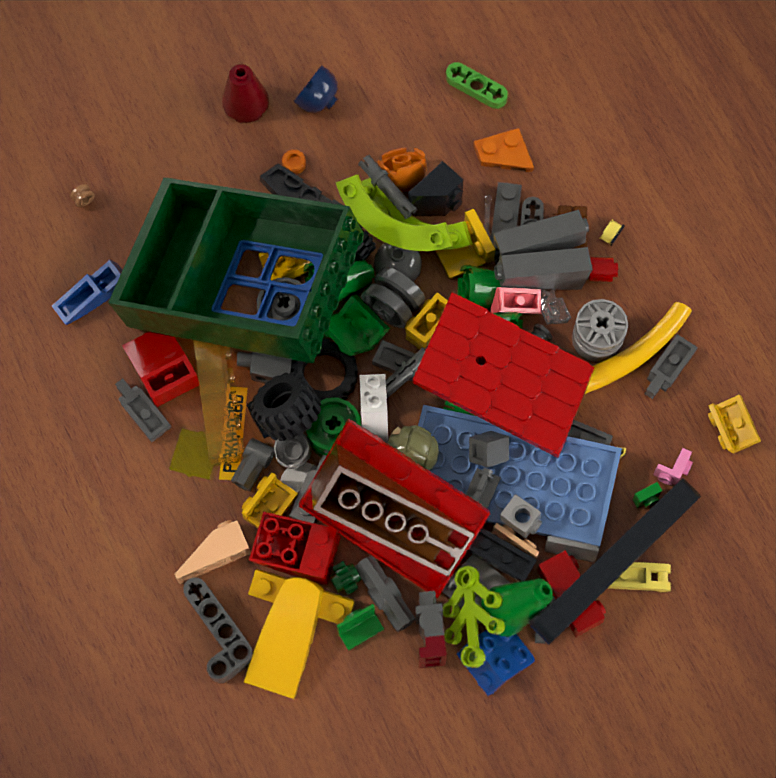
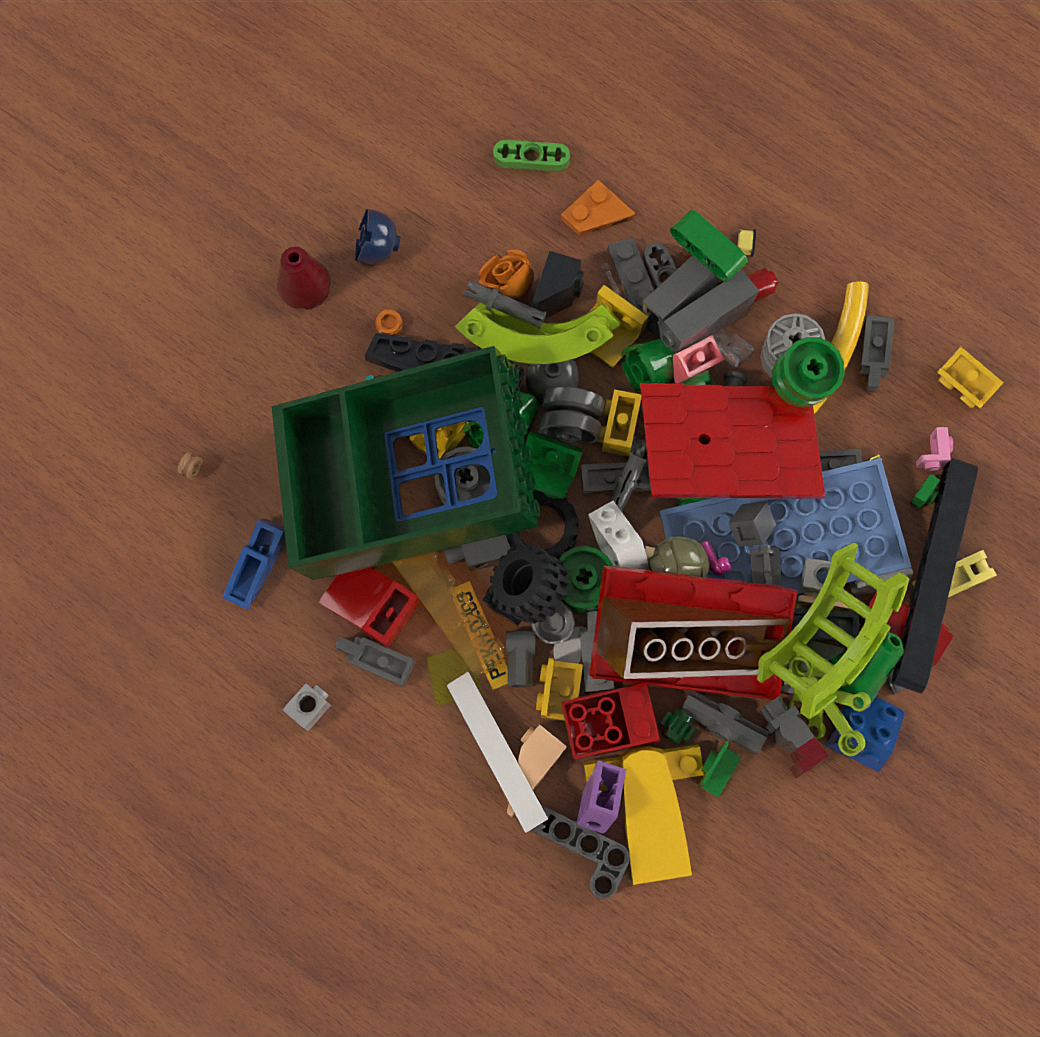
camera: 25 degrees left, 5 degrees up
(62, 412) = (295, 711): none -> light grey brick
(193, 525) = (497, 752): none -> white sticker
(245, 604) = (601, 808): none -> medium lavender torso
(442, 465) = (717, 566): none -> dark pink arm
(513, 581) = (859, 649): none -> lime fence
(568, 214) = (708, 245): none -> green beam
(591, 336) = (808, 372): none -> green wheel

